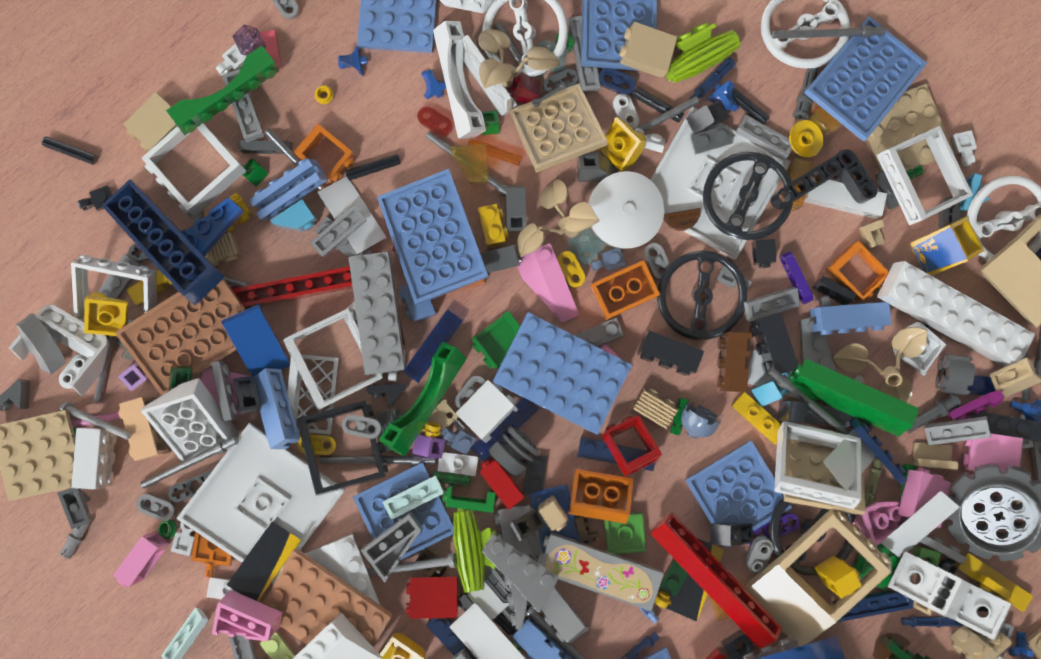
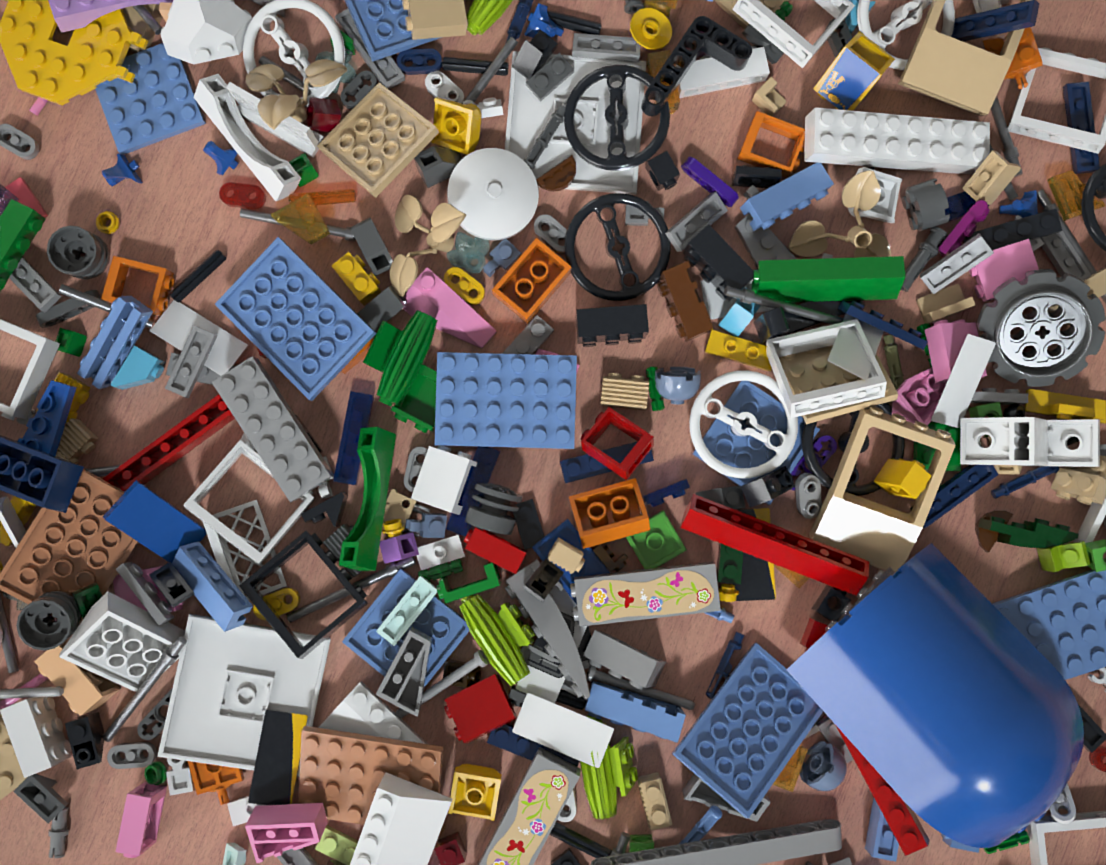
camera: 25 degrees left, 0 degrees up
(128, 479) = (86, 739): none -> black slope
(135, 382) = (41, 630): none -> dark grey wheel
(284, 101) = (65, 250): none -> dark grey wheel
(362, 426) = (315, 560): light grey plate -> none
(416, 312) = (320, 407): medium blue slope -> none
(498, 301) = (400, 355): none -> green plate
(524, 573) = (562, 634): light grey wing -> none
(536, 102) = (342, 123): dark grey hinge -> none
(659, 501) = (676, 490): none -> clear blue plate
(686, 184) = (545, 137): none -> dark grey piece
(697, 526) = (730, 496): none -> dark grey slope
(707, 448) = (699, 408): none -> white piece

